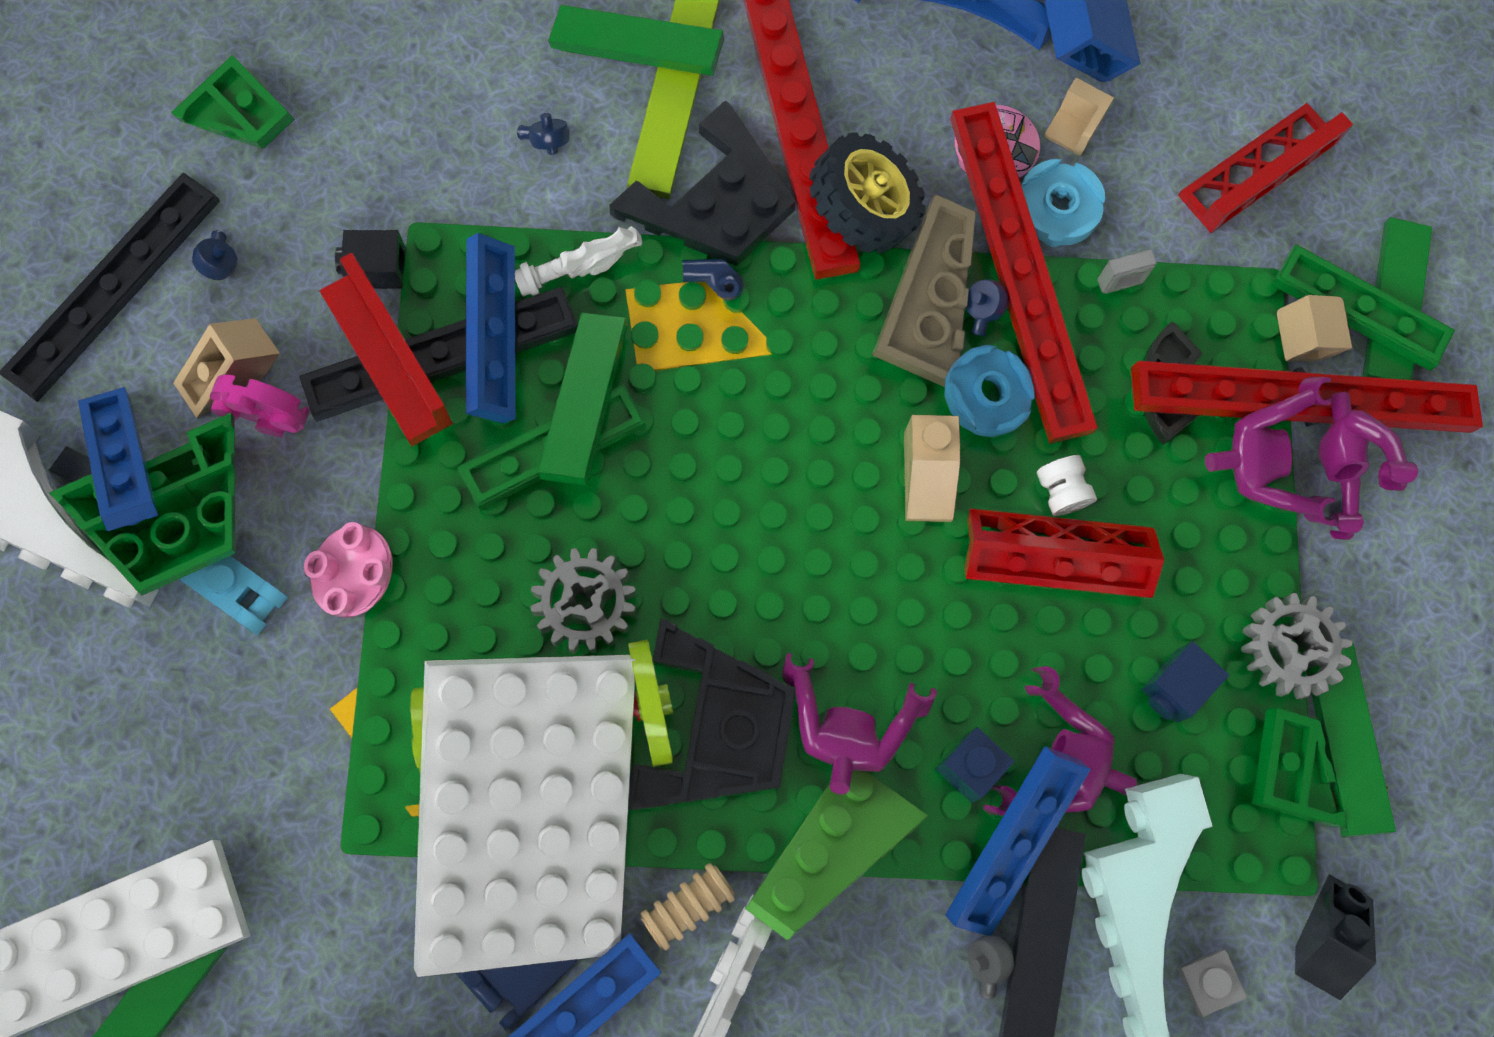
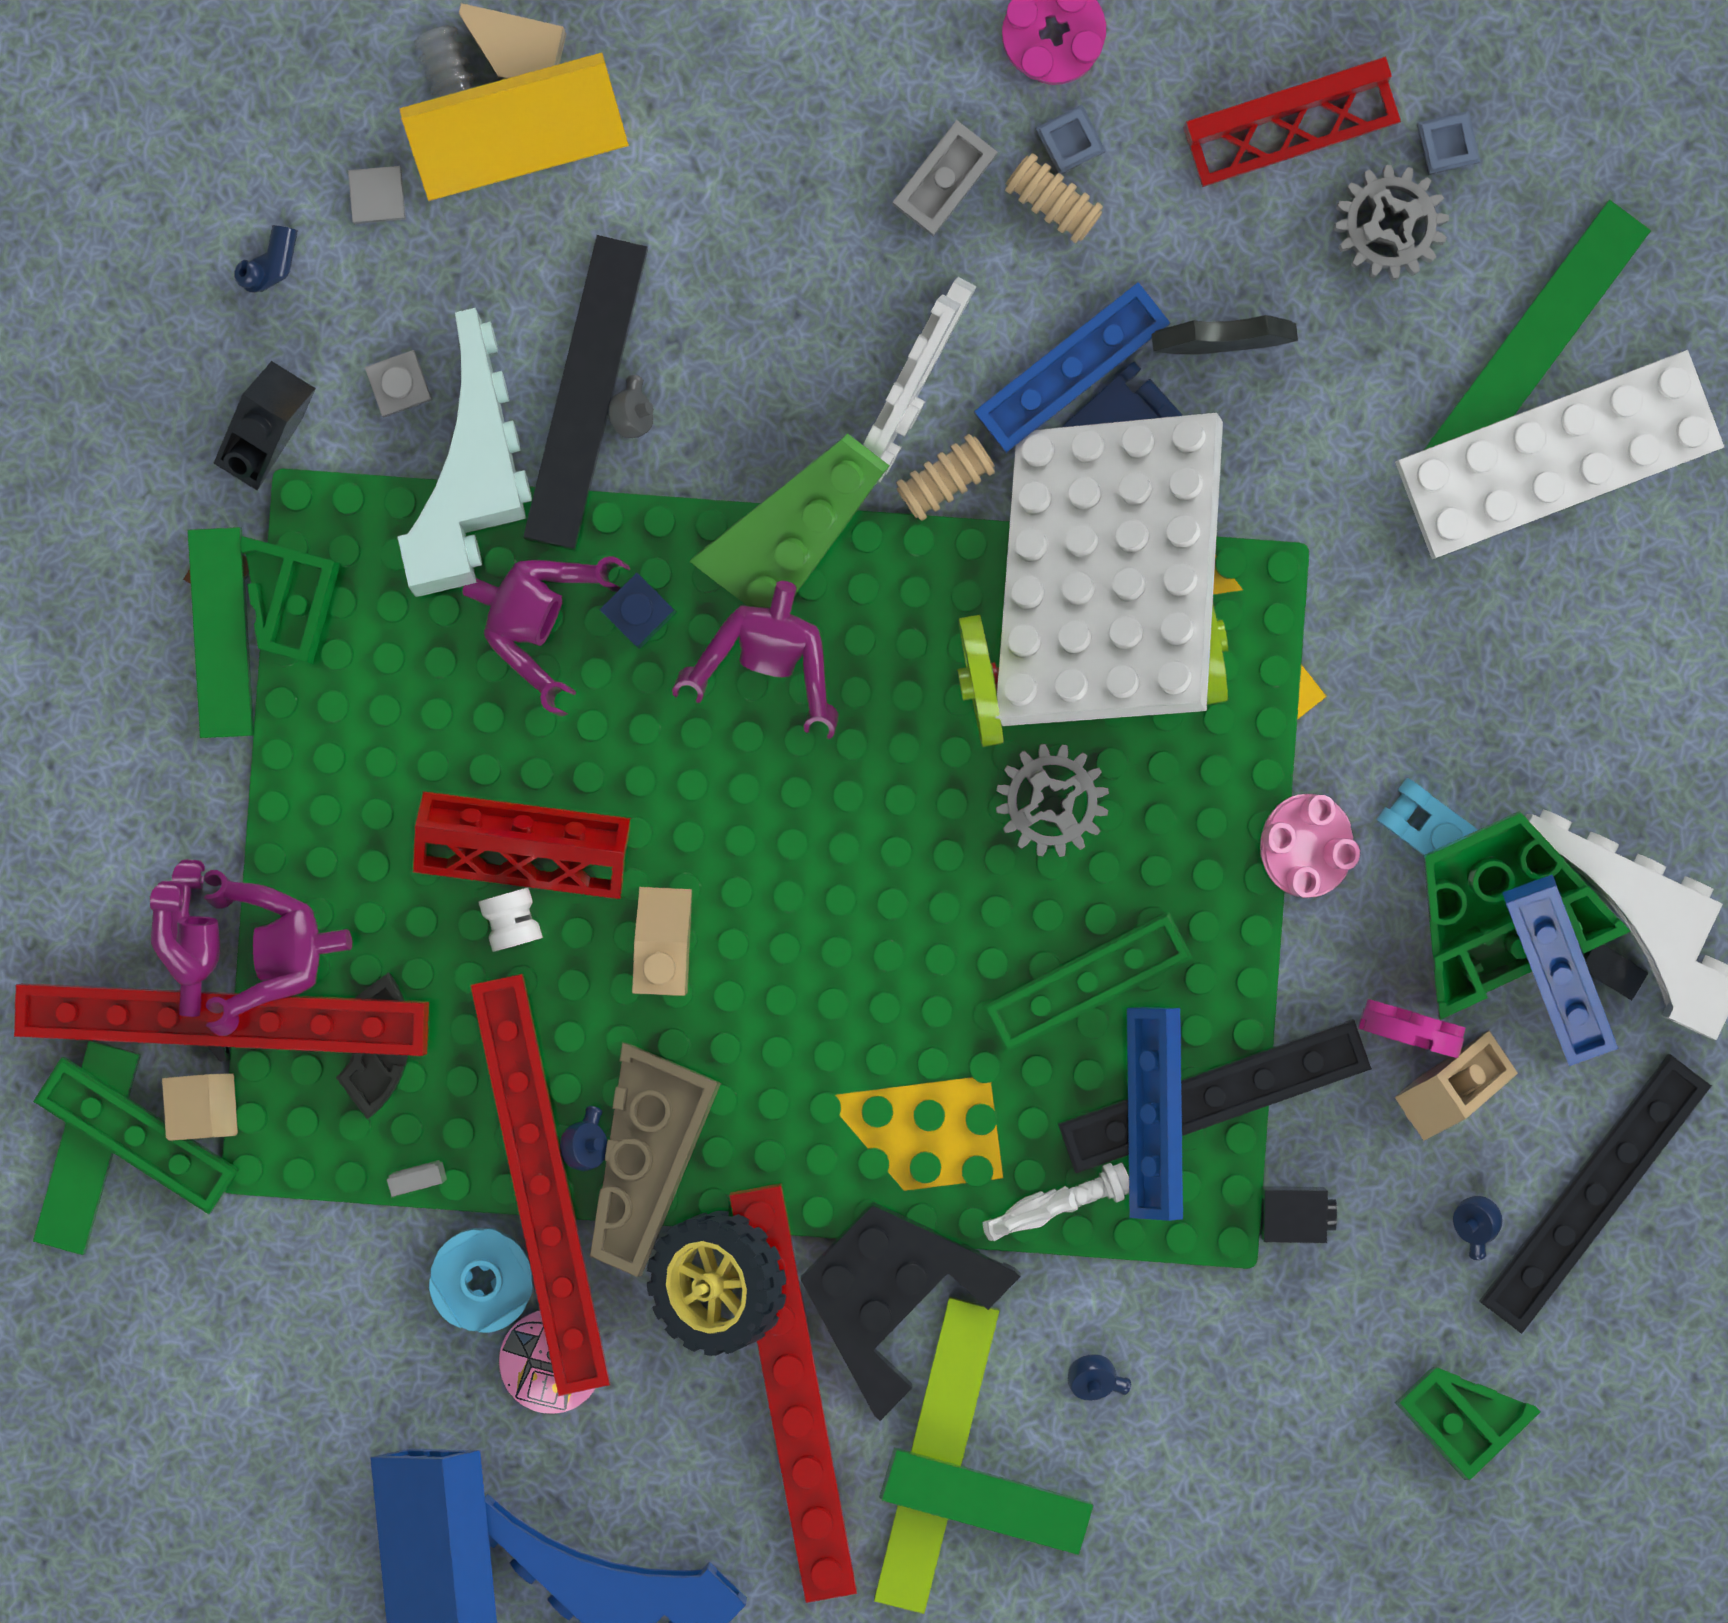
camera: 170 degrees left, 15 degrees up
(385, 354) = (1274, 1086): red fence -> none
(583, 399) = (1050, 1032): green tile -> none
(716, 274) = (895, 1186): dark blue arm -> none
(735, 732) = (890, 657): black wing -> none
(968, 402) = (618, 1035): dark azure tile -> none
(1017, 841) = (599, 528): blue plate -> none
(1078, 116) = (451, 1389): tan panel -> none
(1184, 683) = (403, 692): dark blue brick -> none
(1265, 174) = (212, 1315): red fence -> none
(1278, 655) = (263, 753): light grey gear -> none

